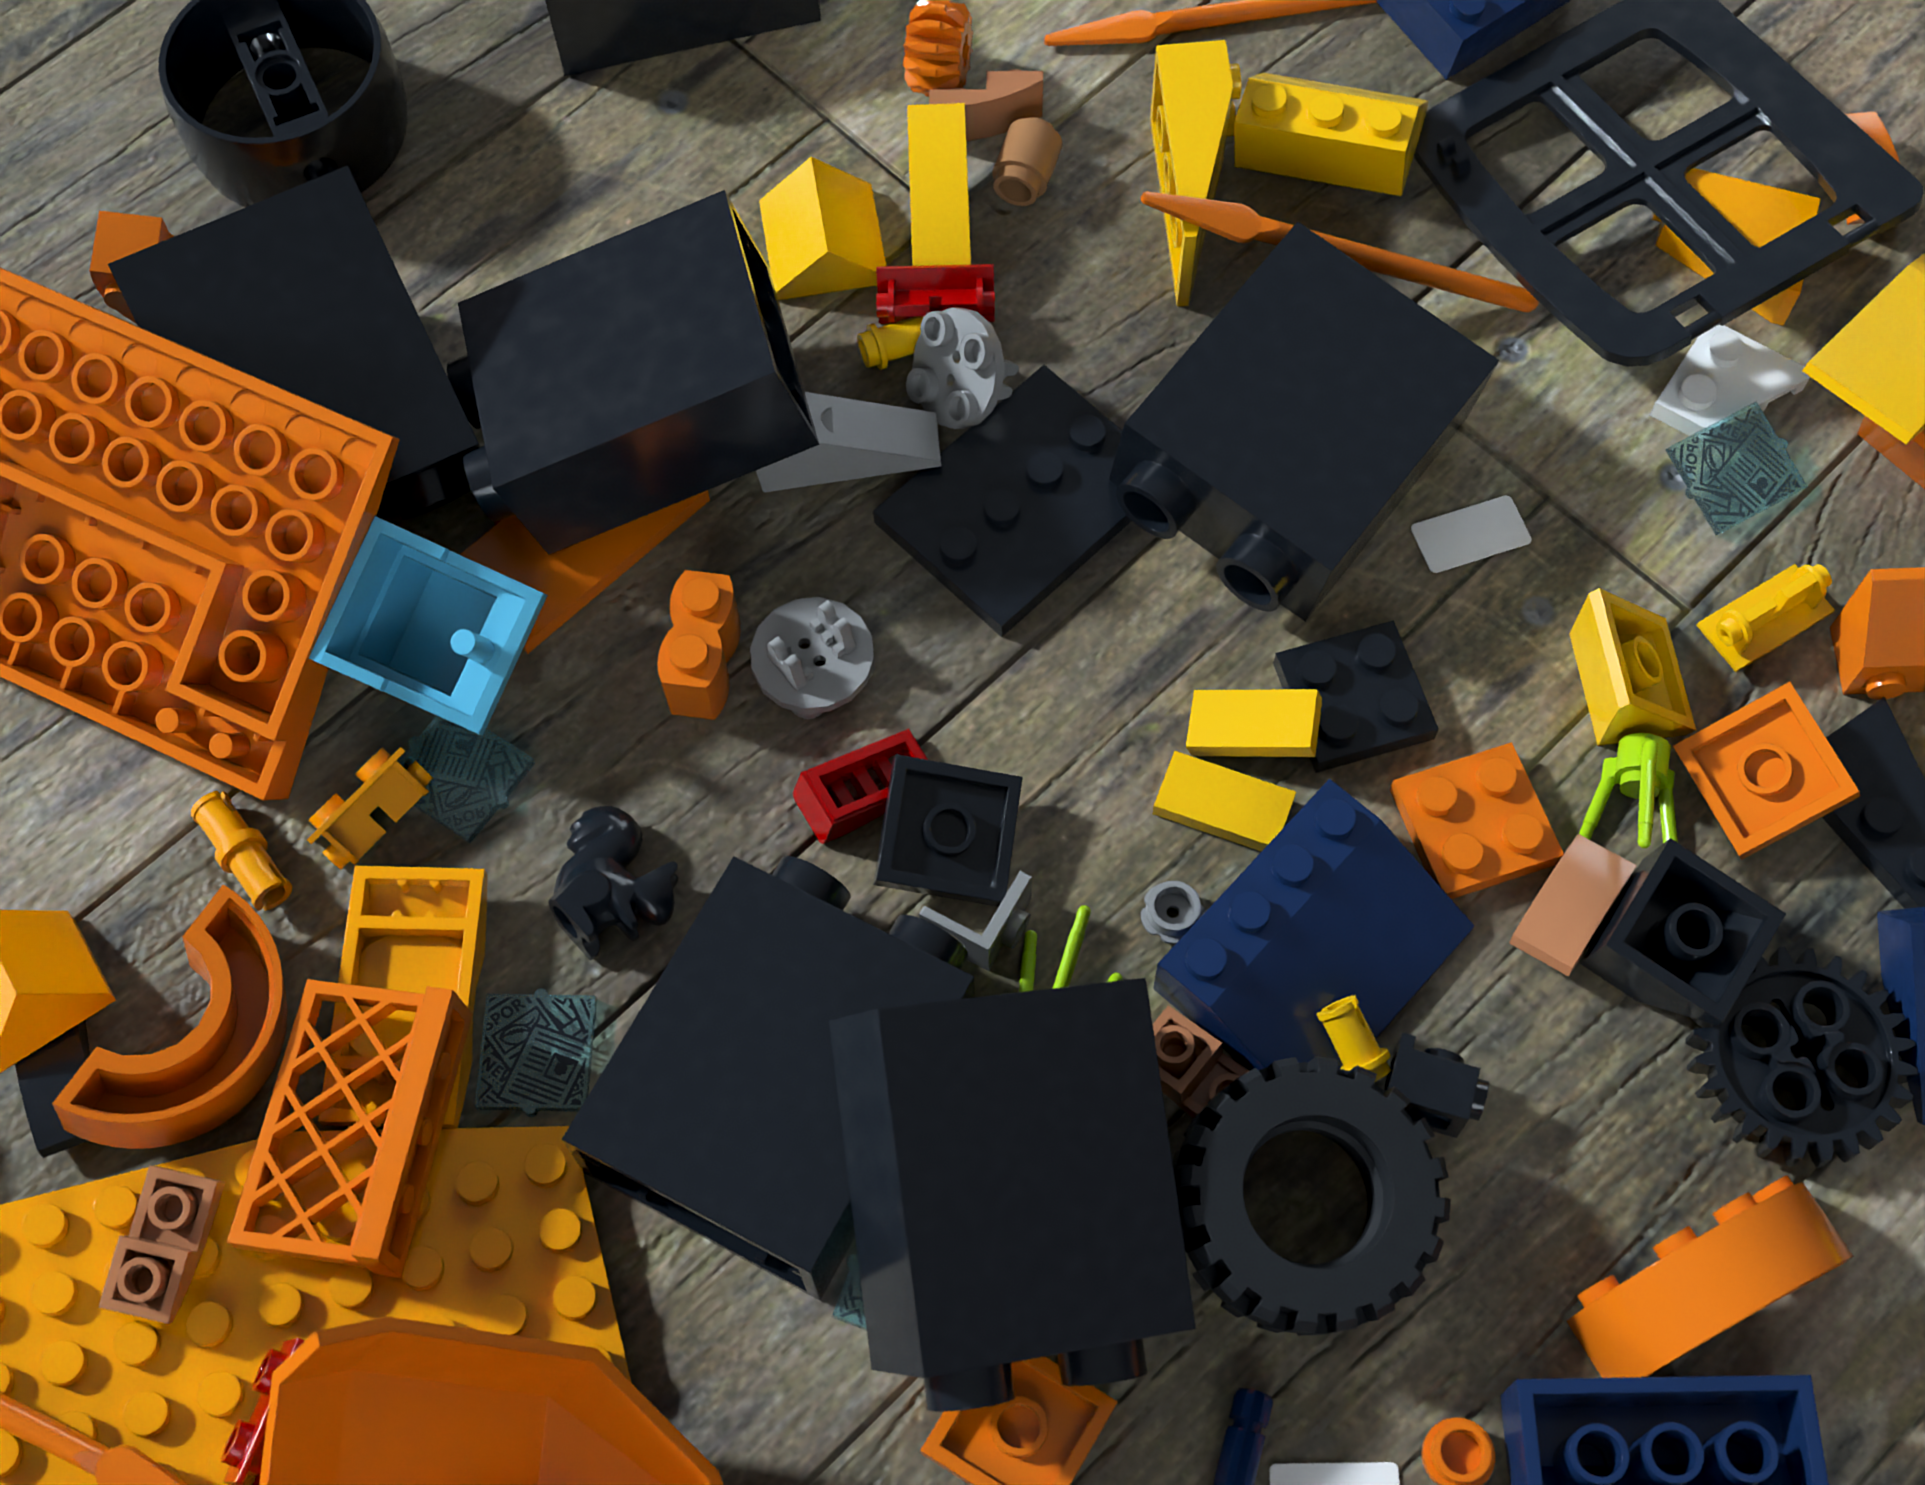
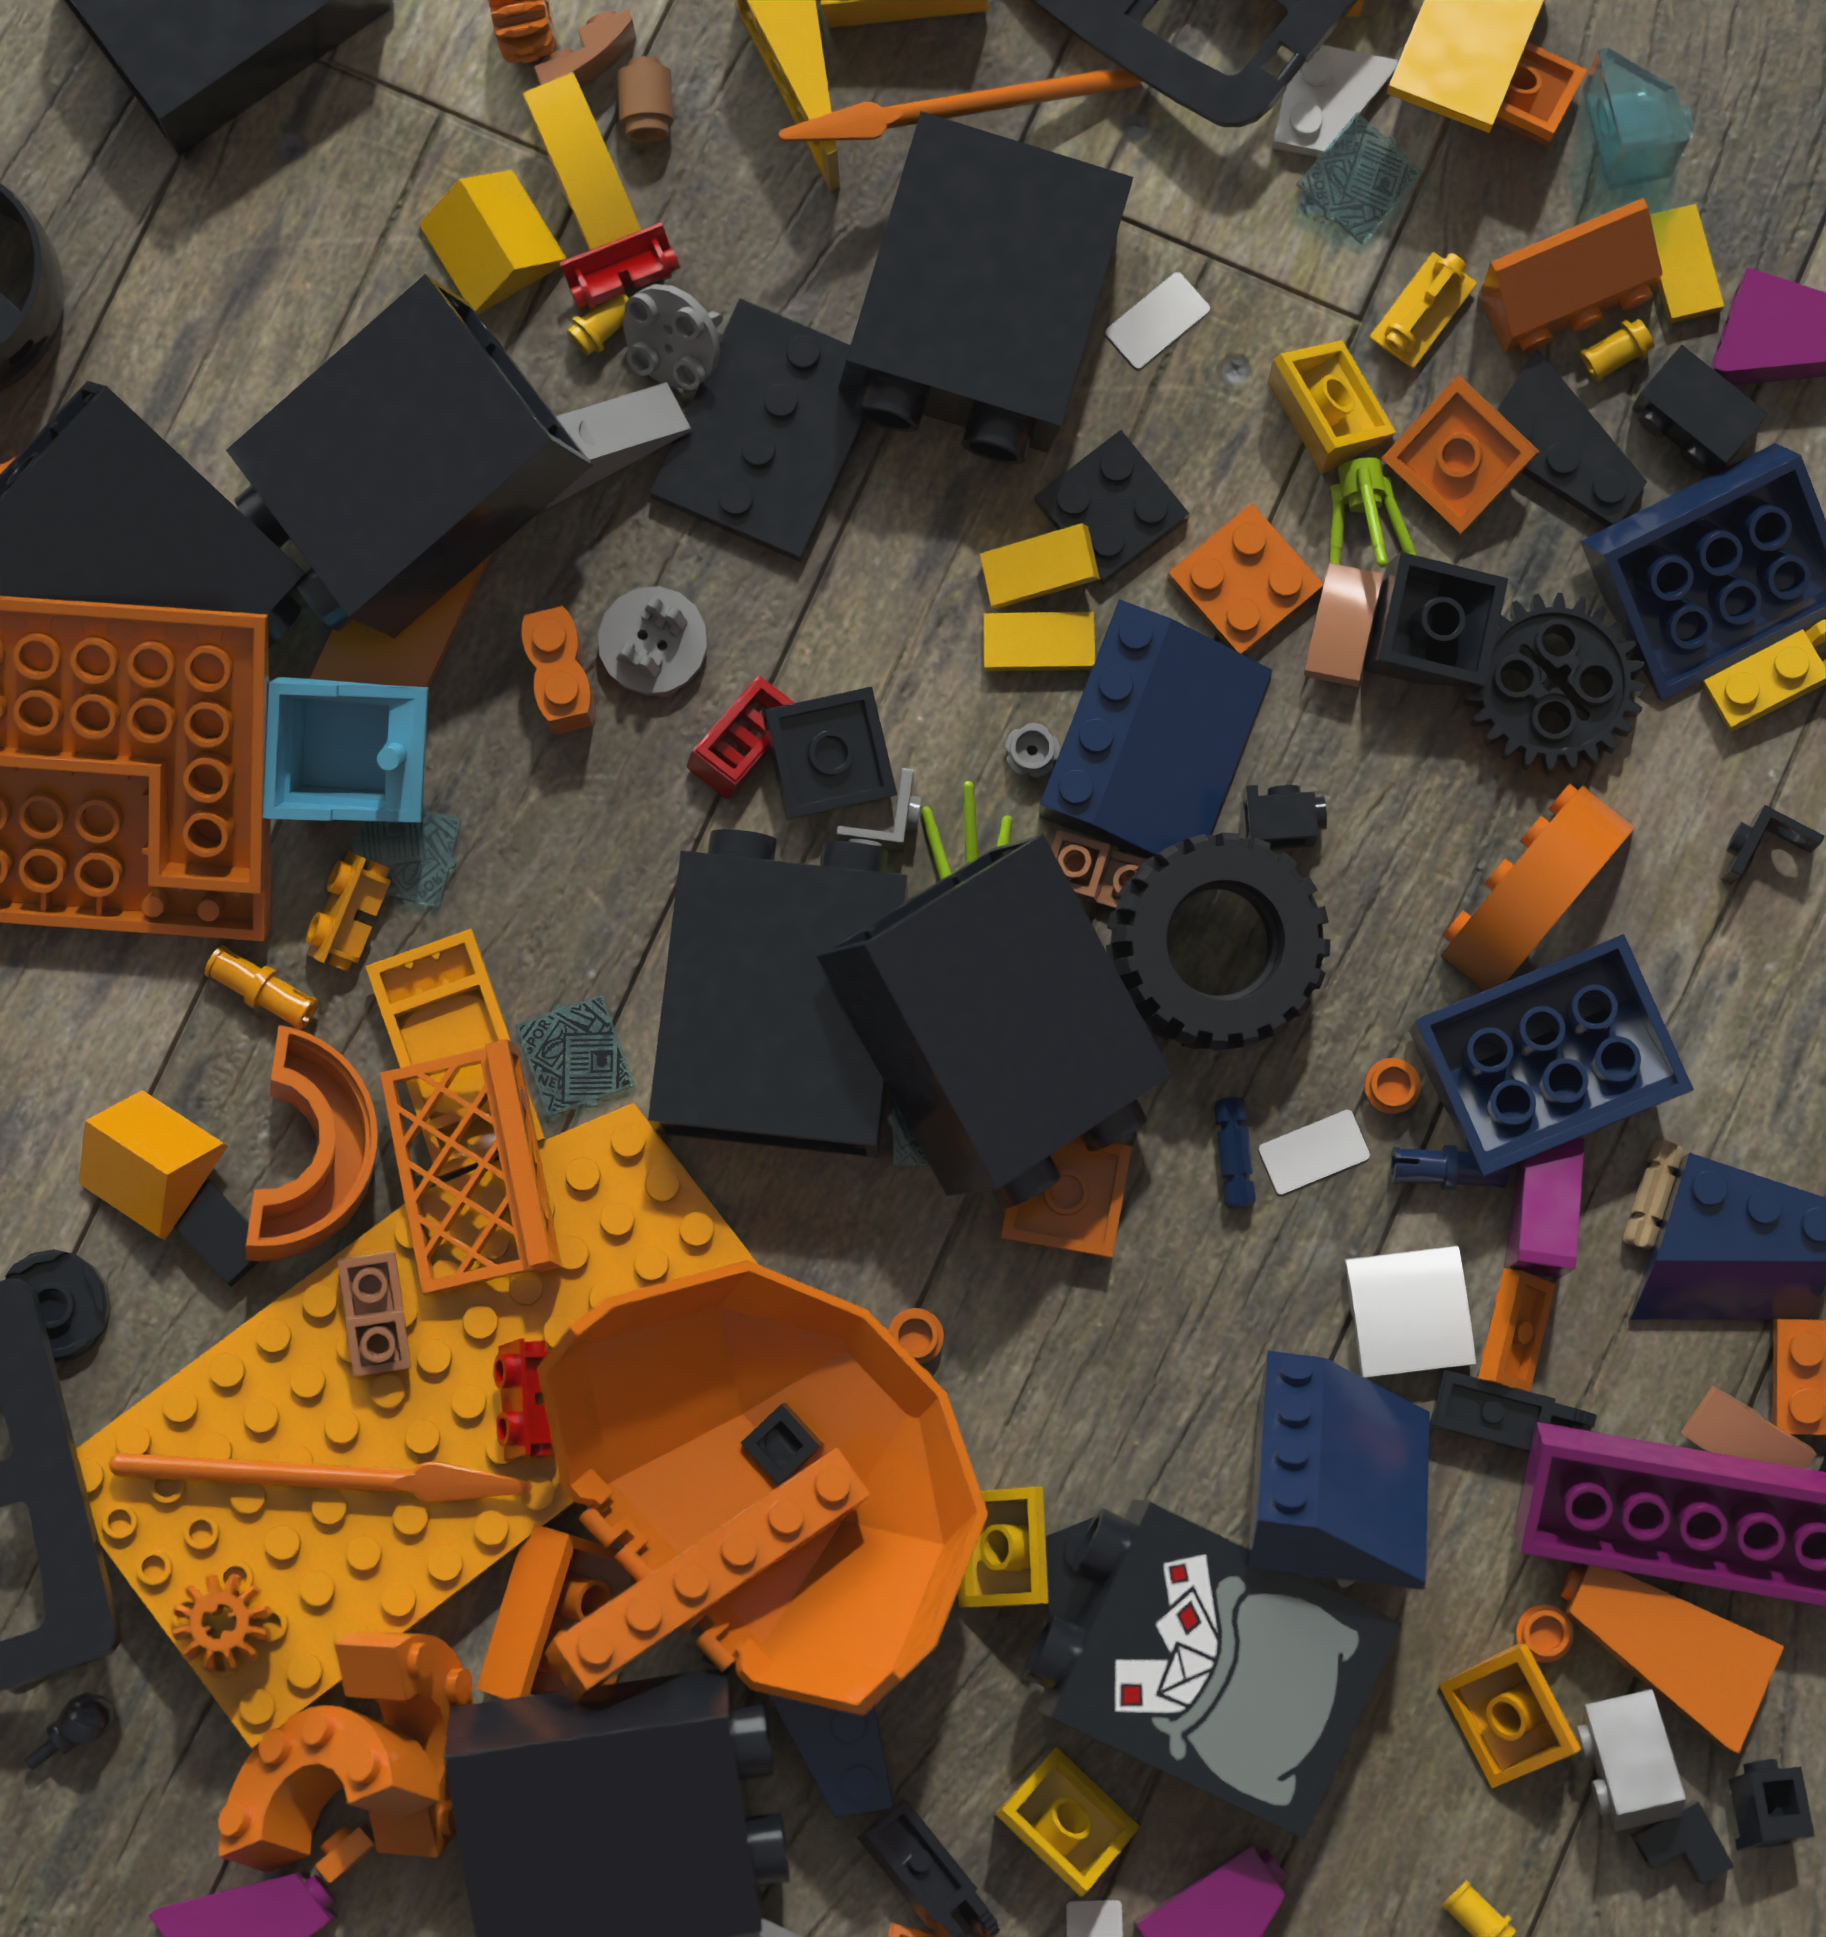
camera: 20 degrees left, 15 degrees up
(597, 887) = (565, 907): black animal -> none
(1354, 1037) = (1211, 804): yellow pin -> none

